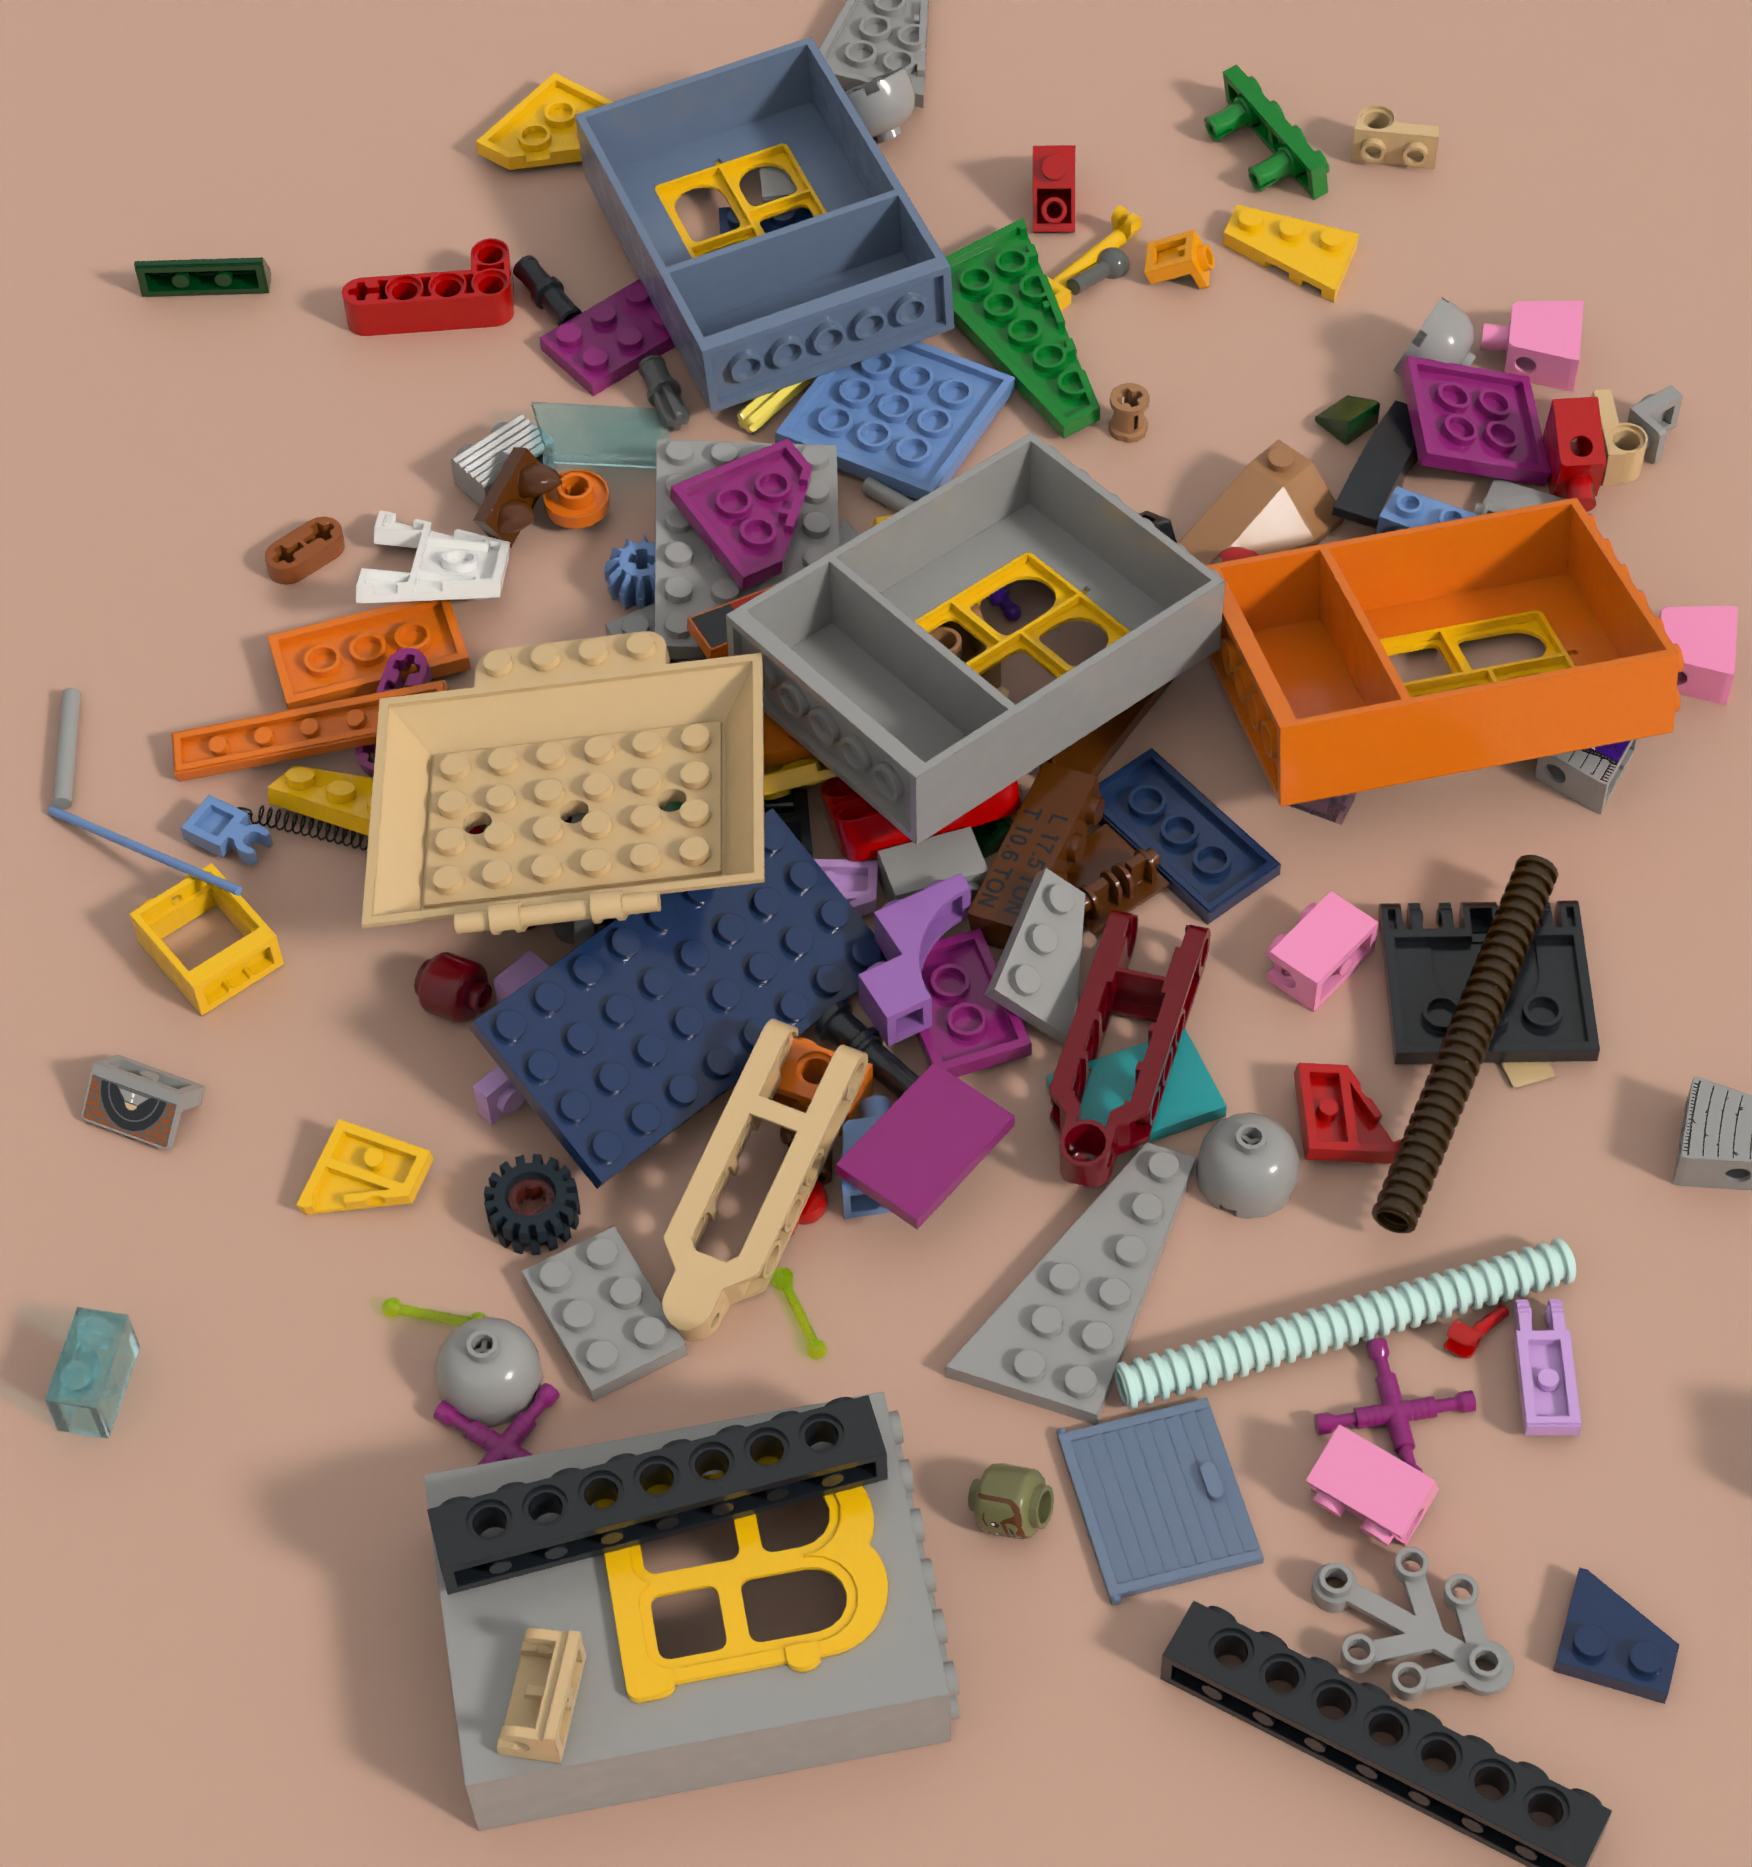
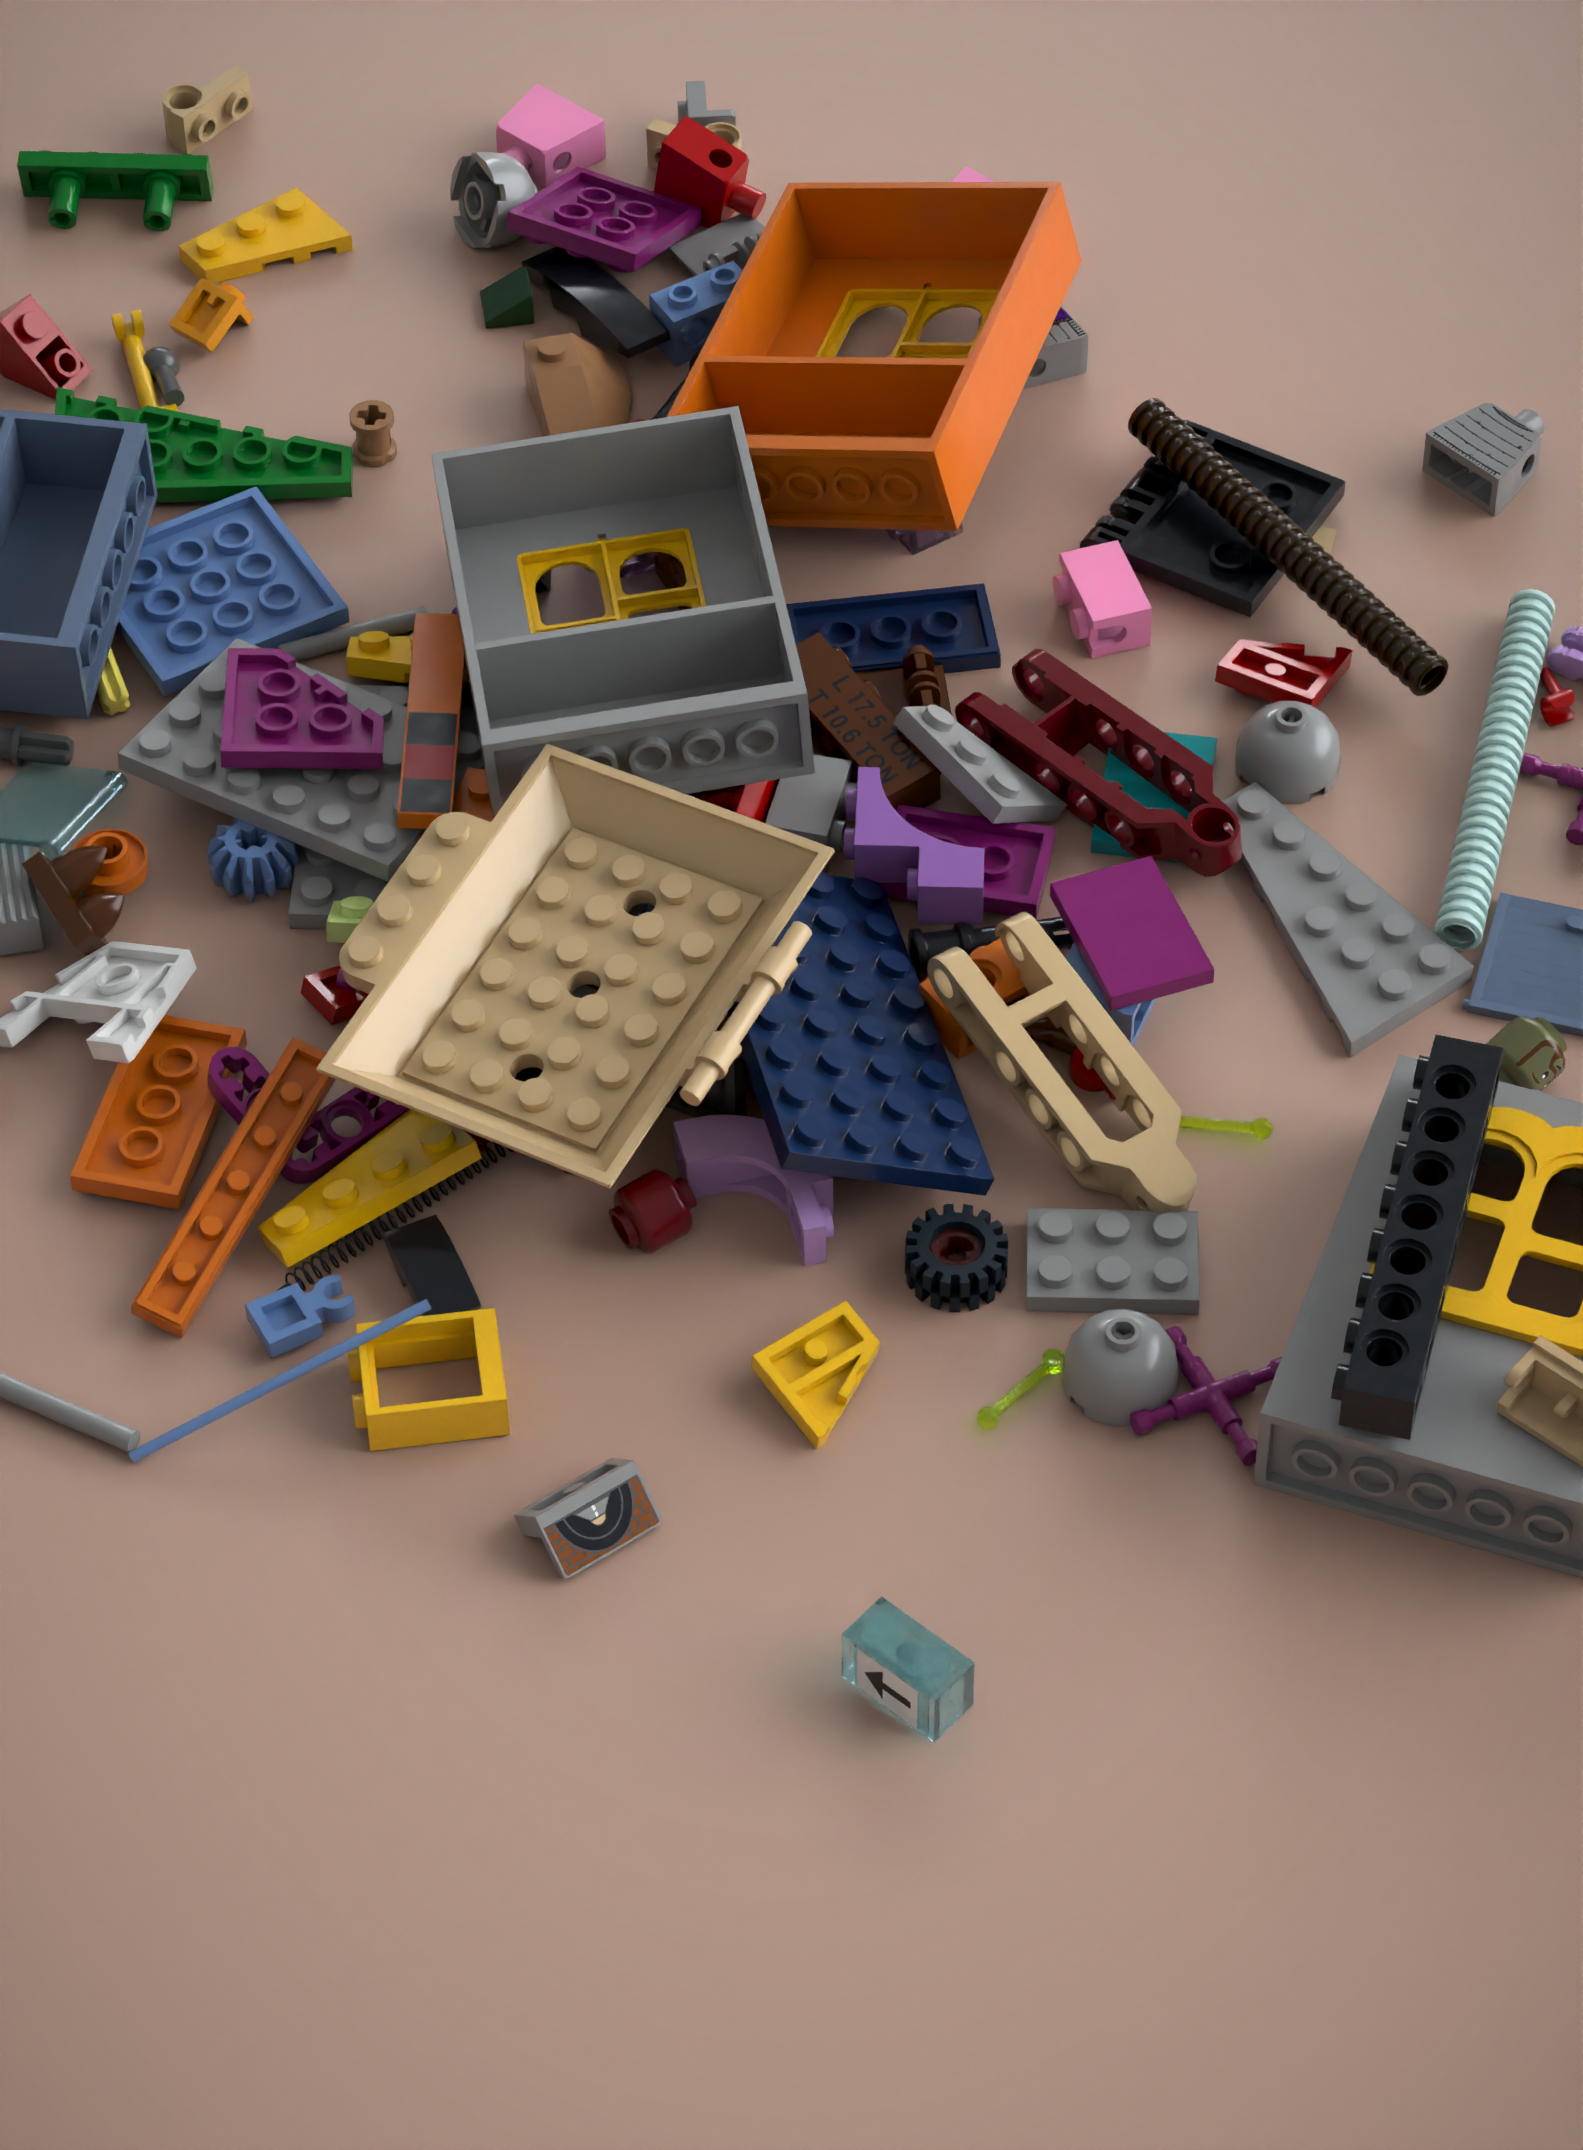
camera: 60 degrees left, 5 degrees down
(311, 887) = (431, 1267): none -> black slope

